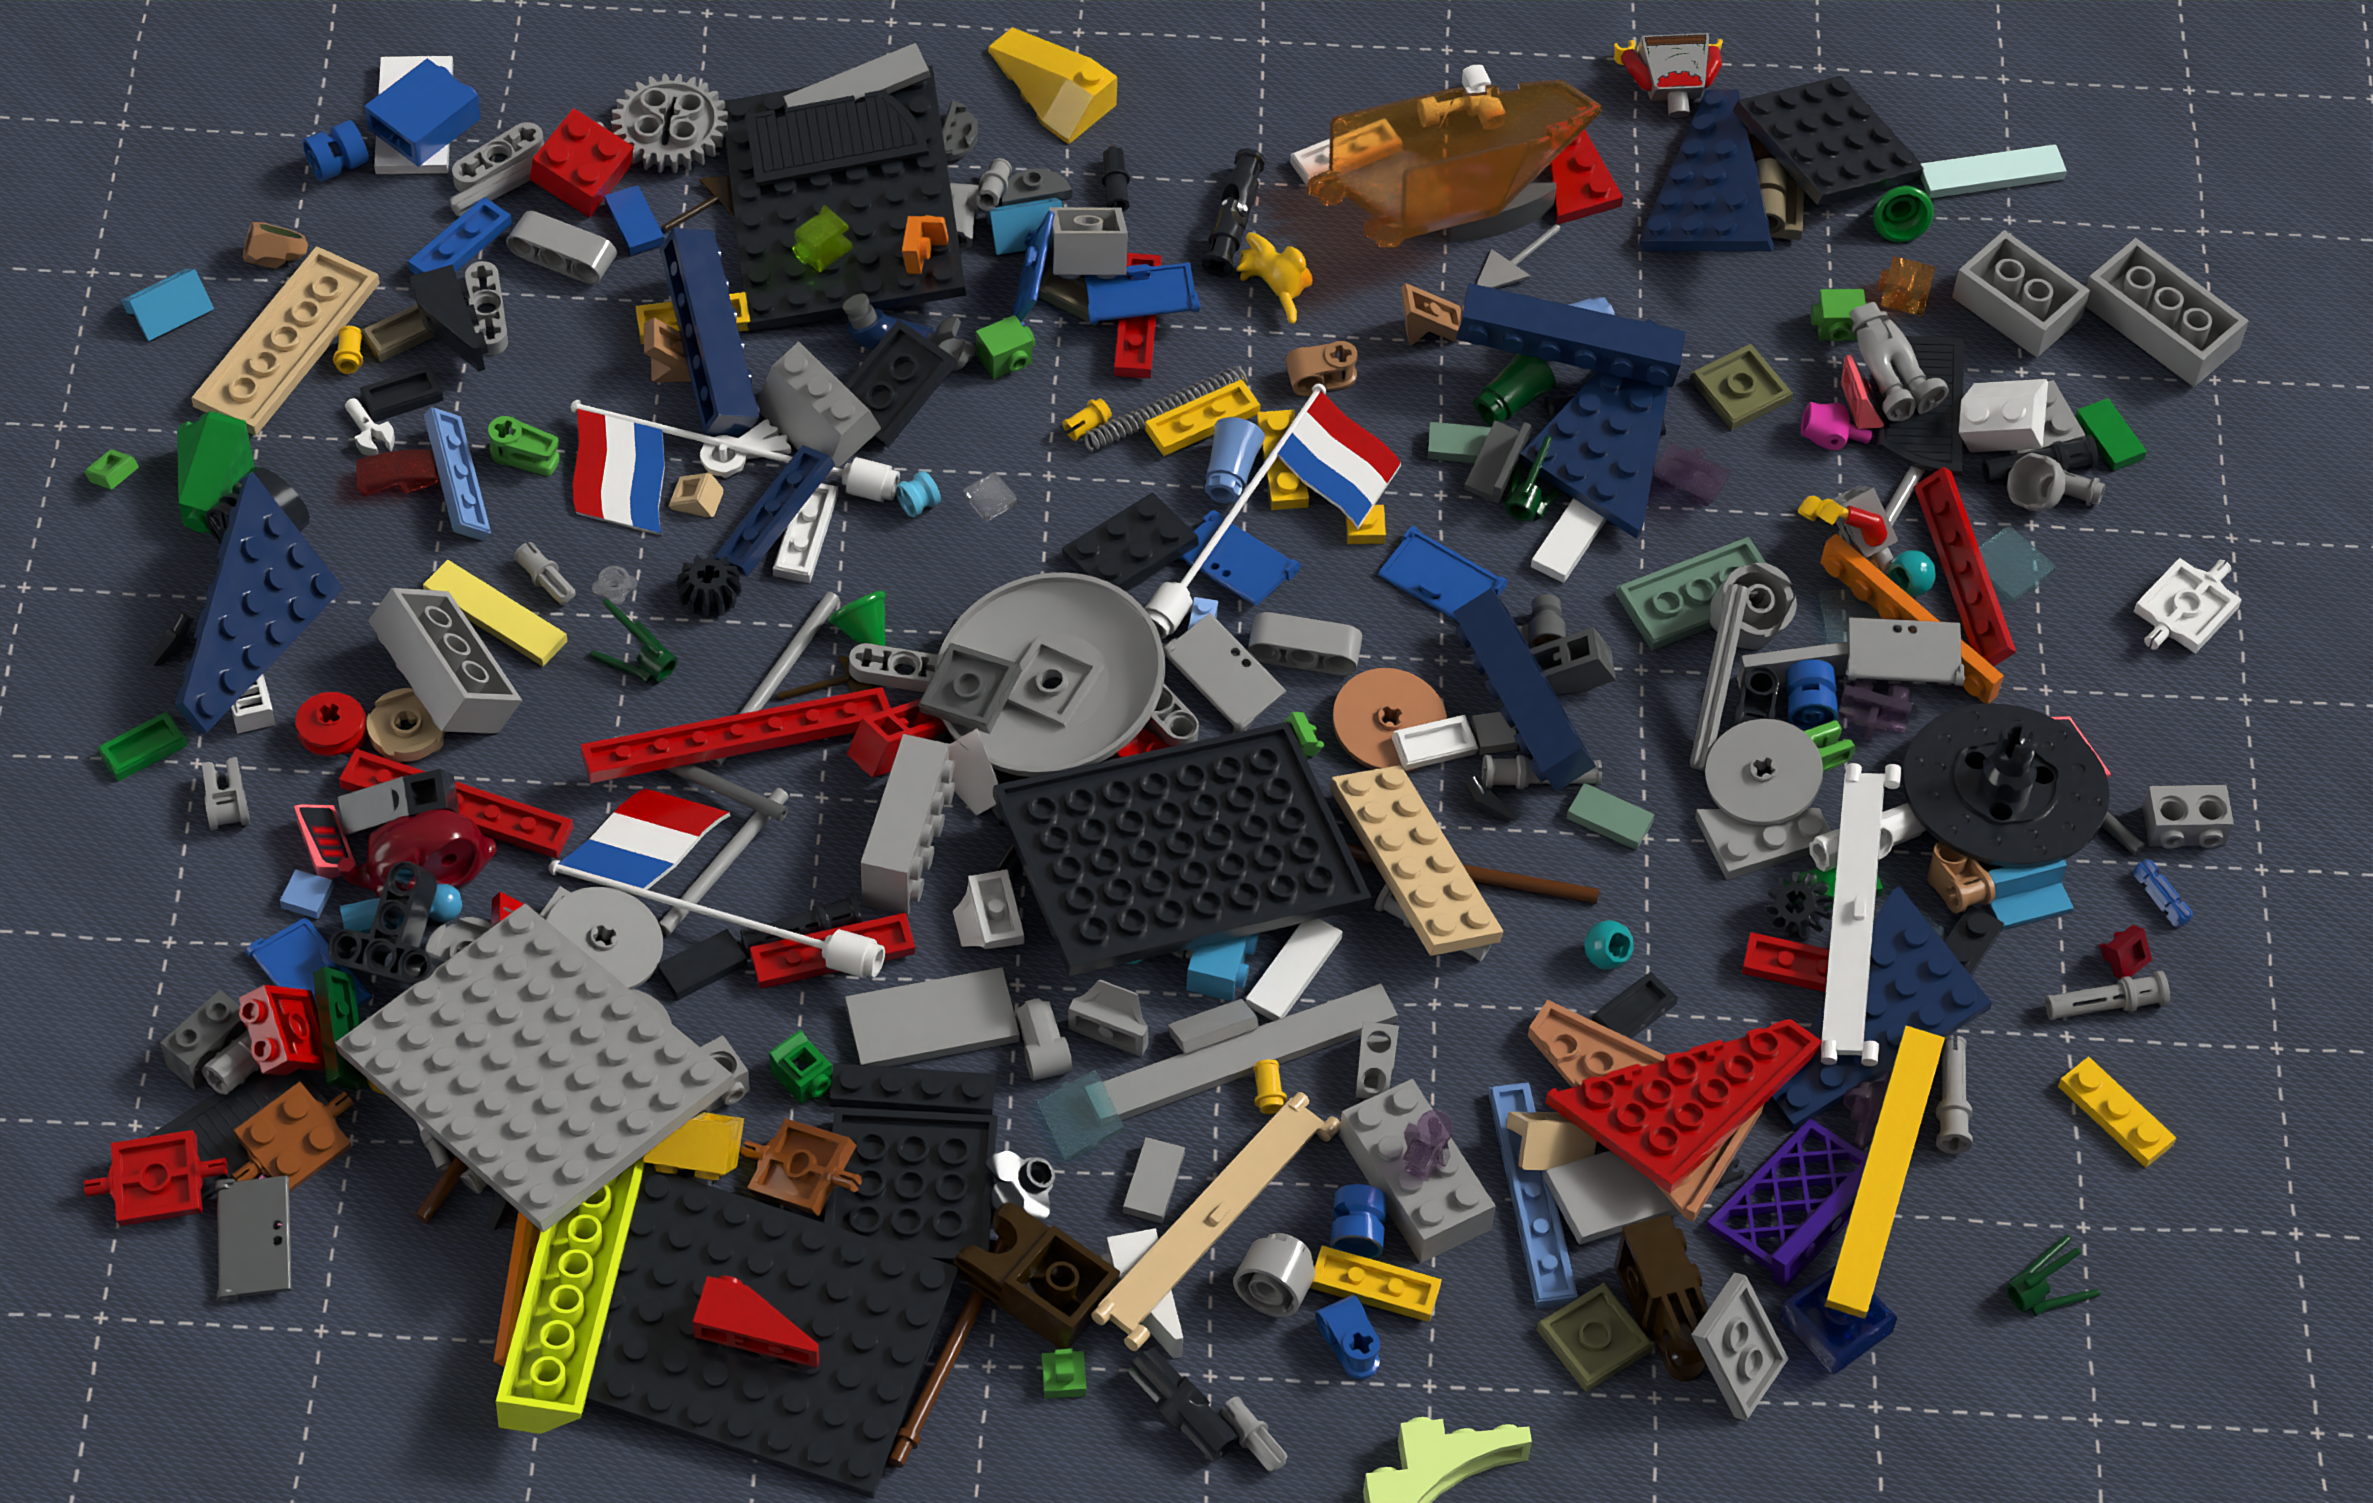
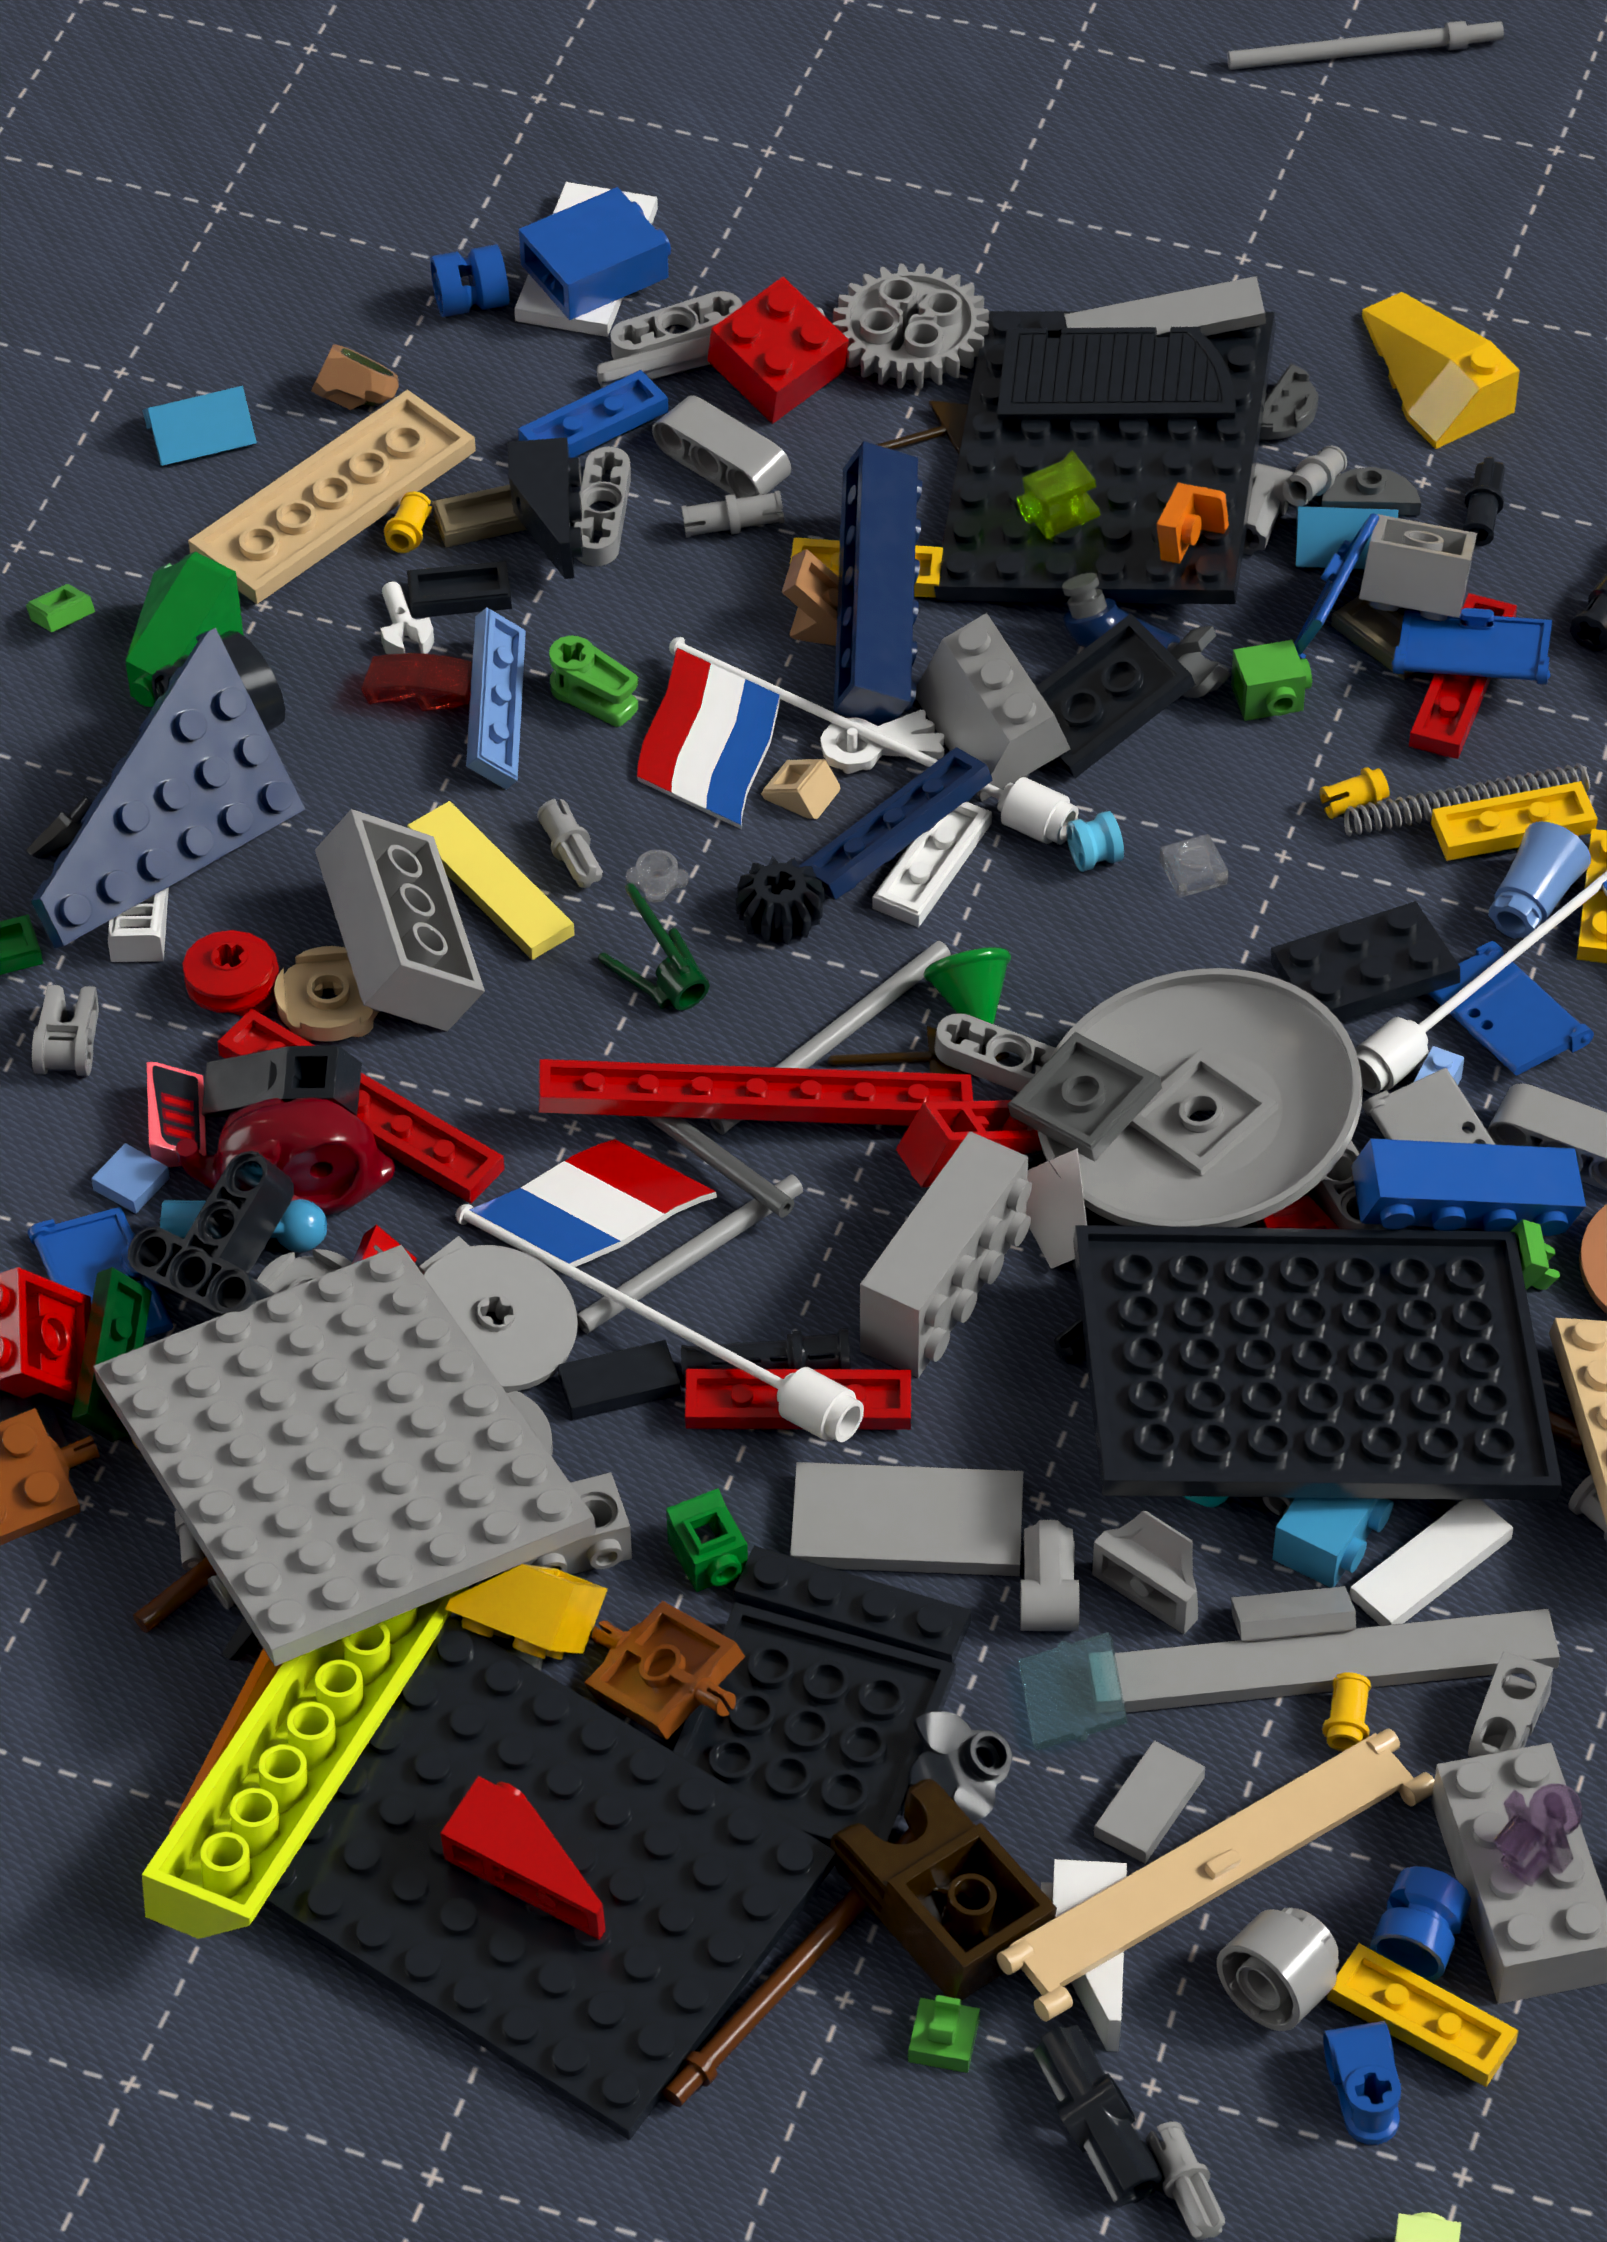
camera: 20 degrees right, 5 degrees down
(584, 296) = (732, 514): none -> light grey pin
(634, 220) = (826, 433): blue tile -> none
(989, 912) = (1026, 1395): white slope -> none
(1249, 696) = (1467, 1185): none -> blue brick

